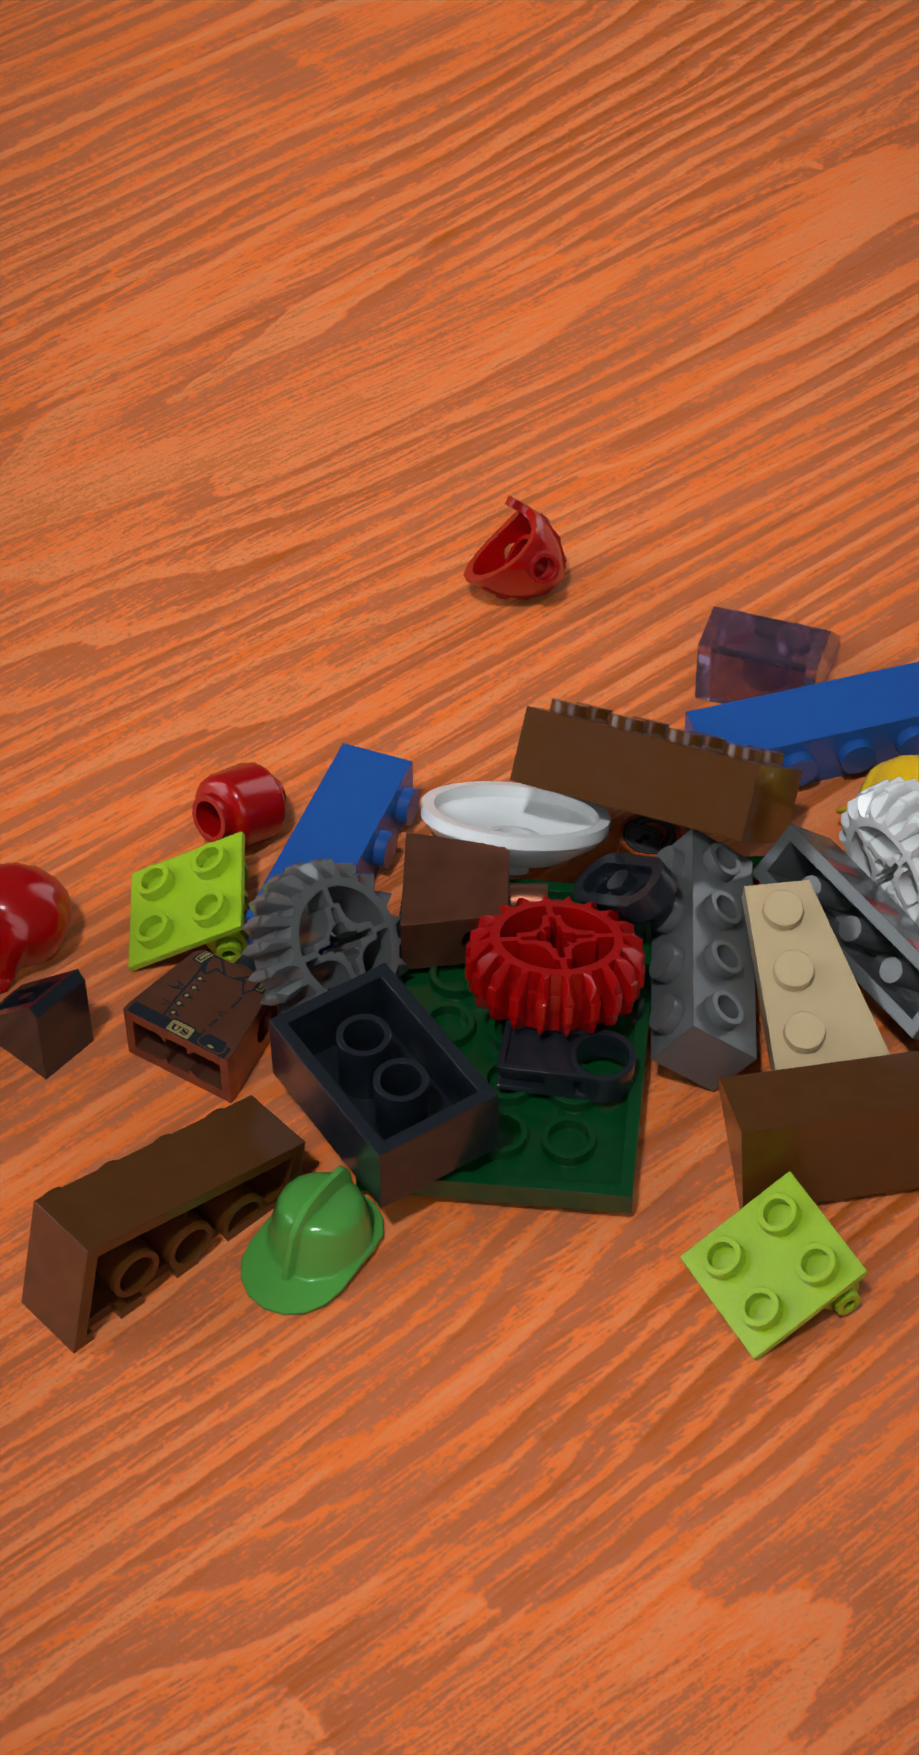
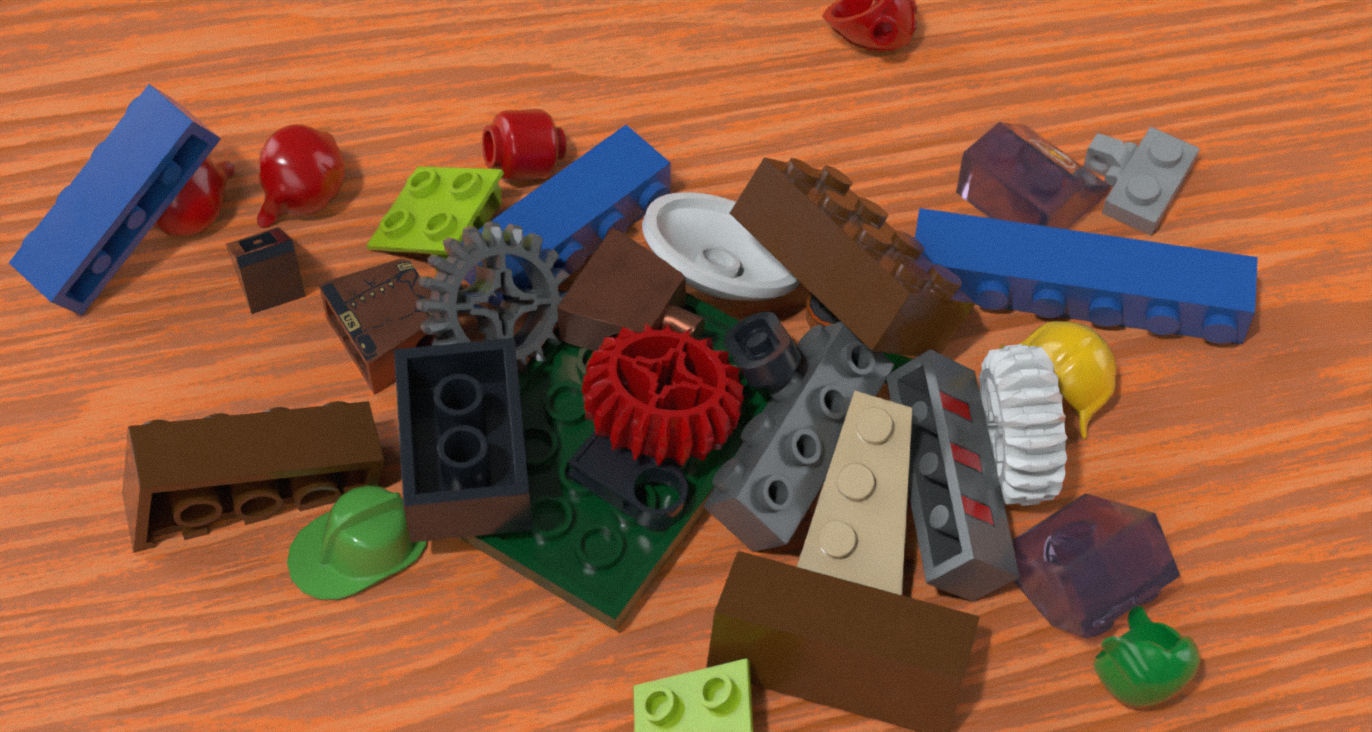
camera: 25 degrees right, 10 degrees up
(865, 612) = (1141, 176): none -> light grey hinge

